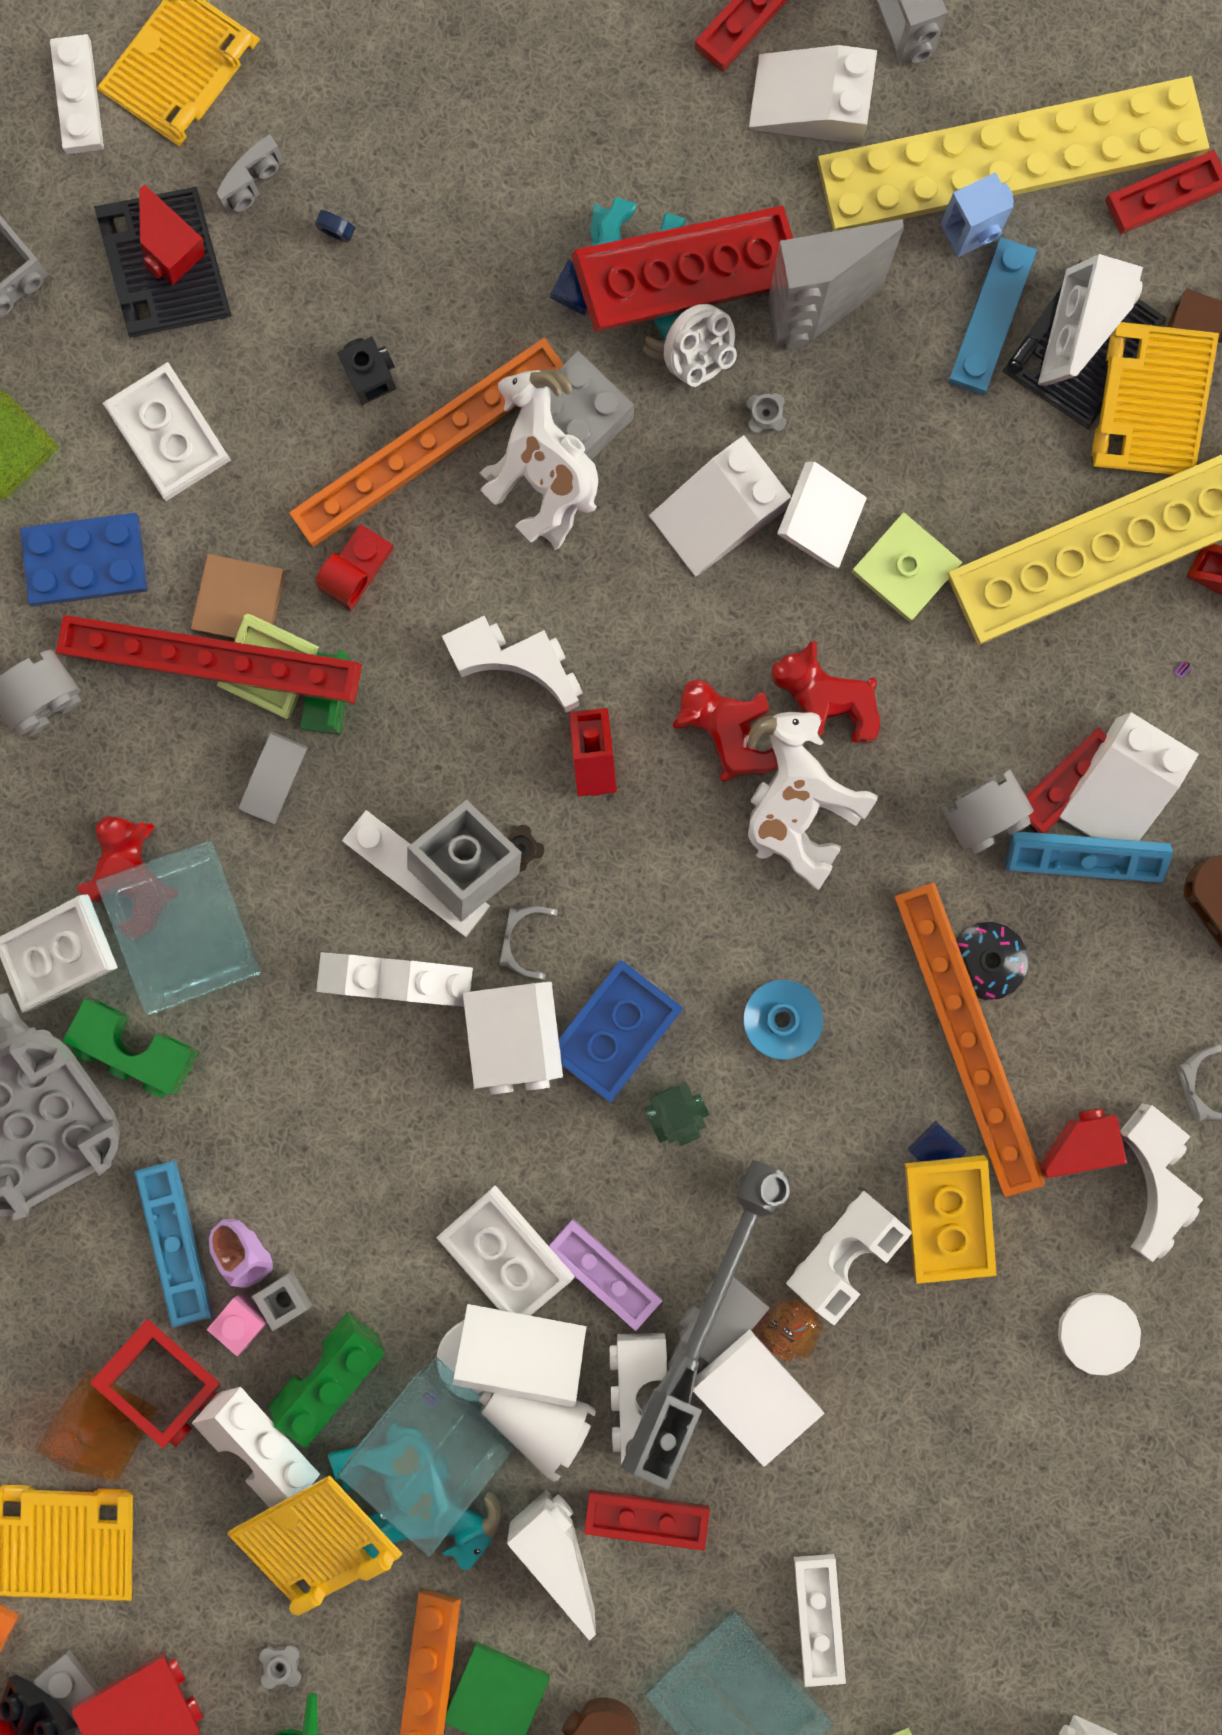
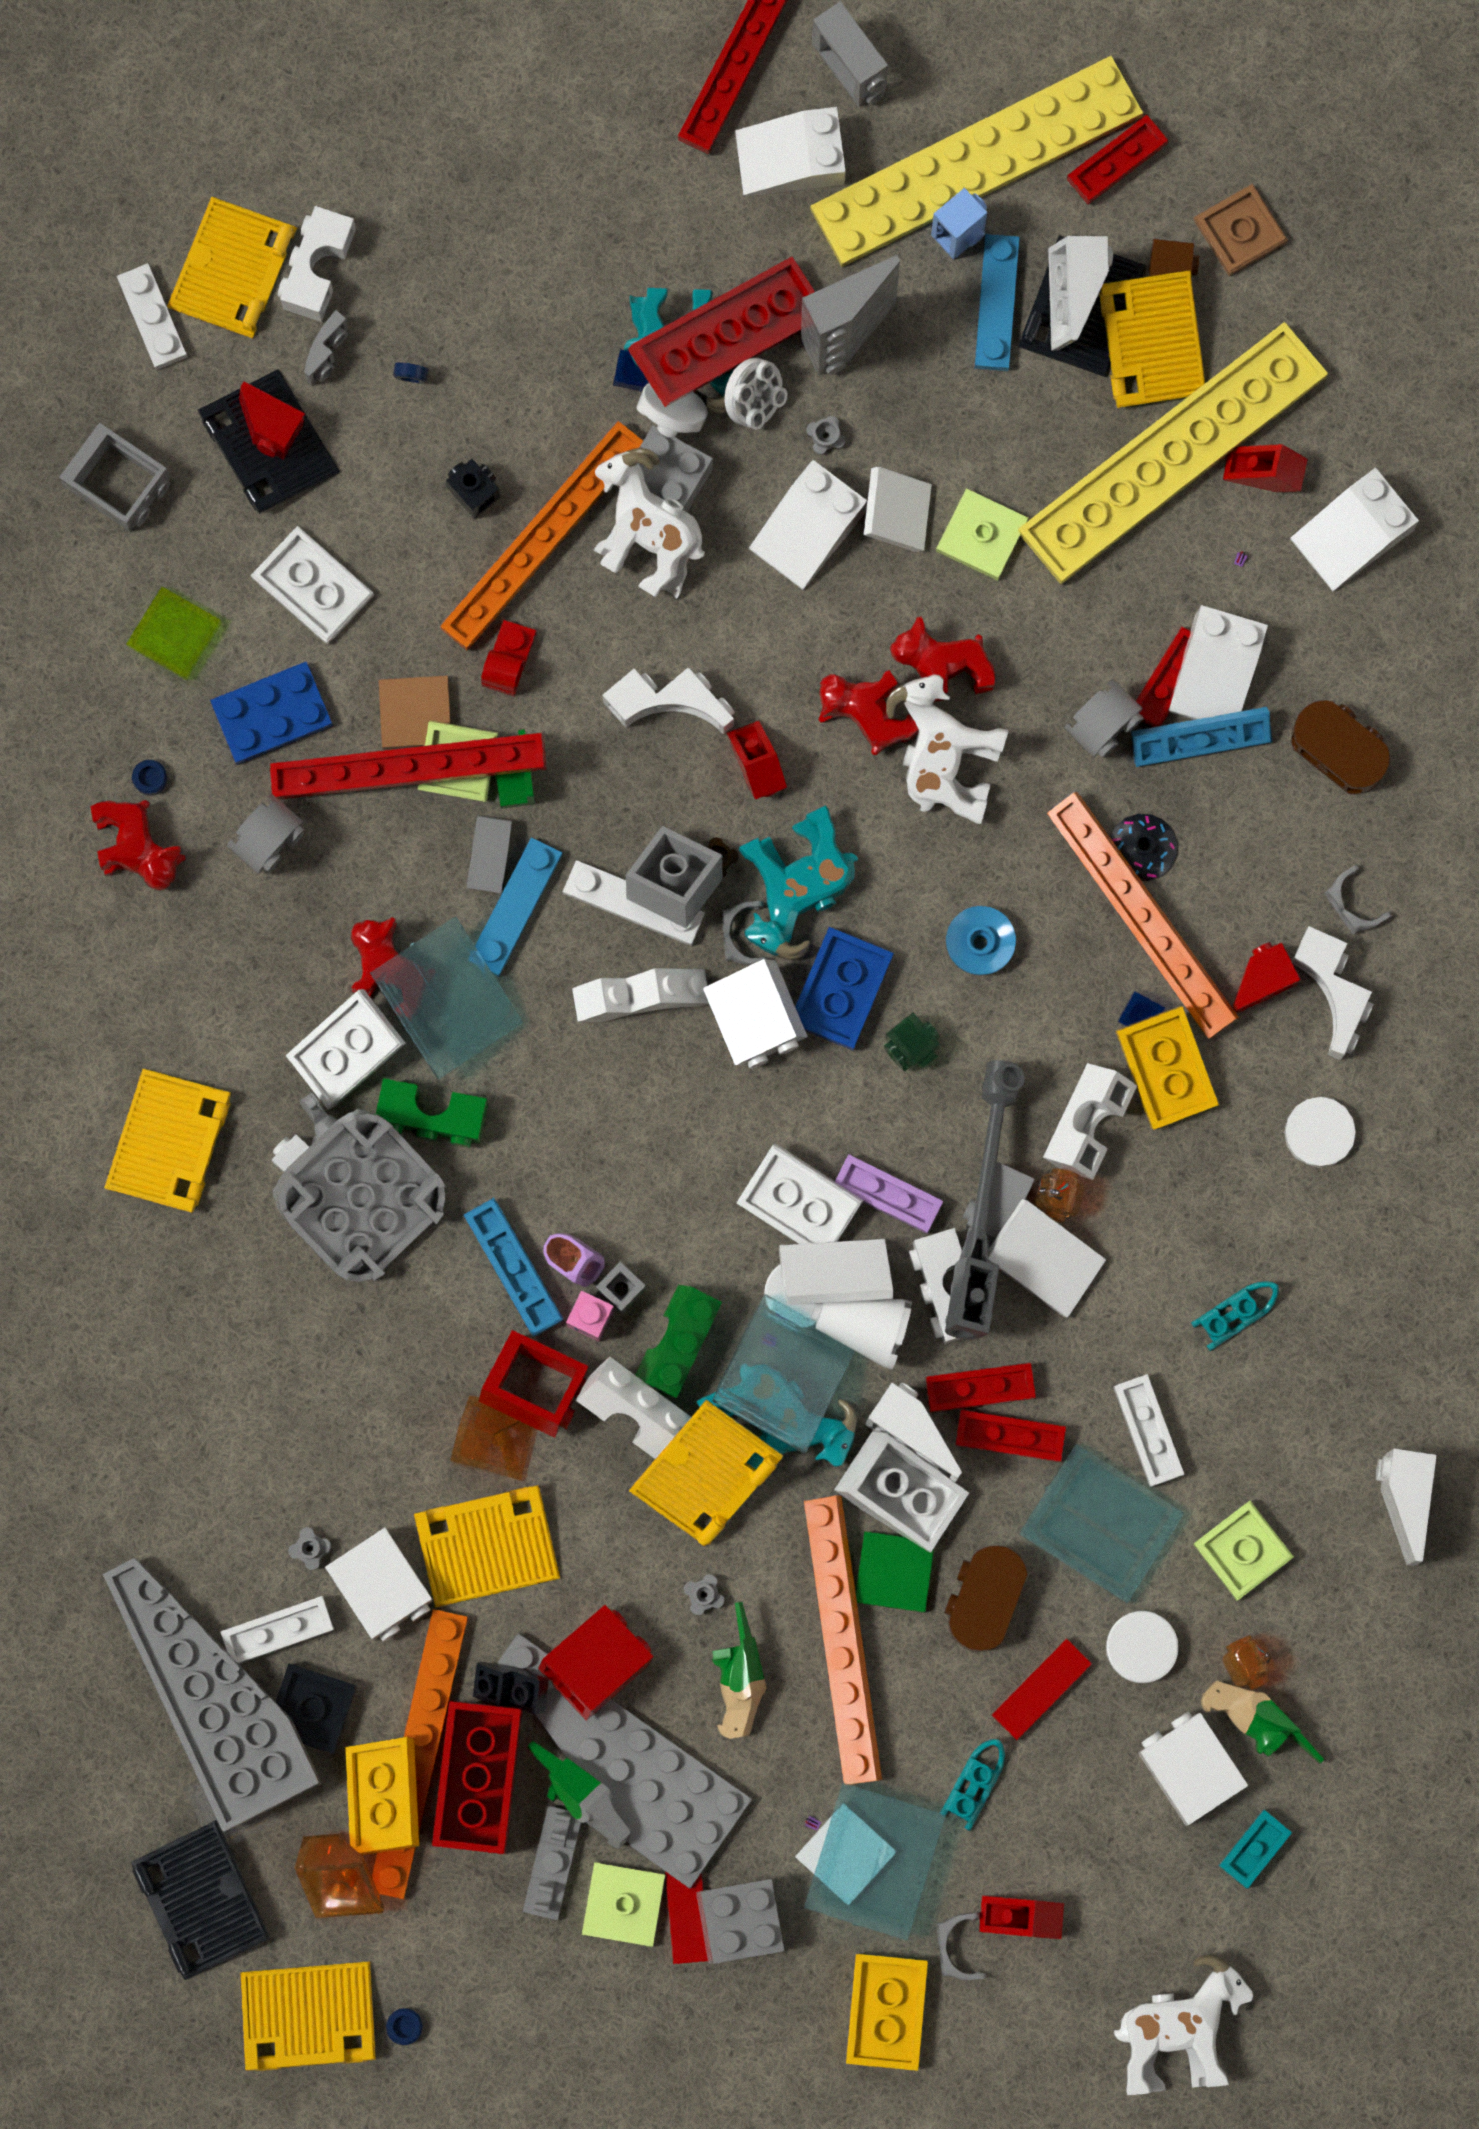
camera: 20 degrees left, 5 degrees down
(280, 53) = (324, 235): none -> white arch
(287, 842) = (517, 904): none -> dark azure plate
(522, 1620) = (901, 1490): none -> white slope
(599, 905) = (800, 886): none -> teal animal
(614, 348) = (681, 416): none -> white tile
(665, 1583) = (1010, 1436): none -> red plate
(961, 1510) = (1243, 1308): none -> teal piece

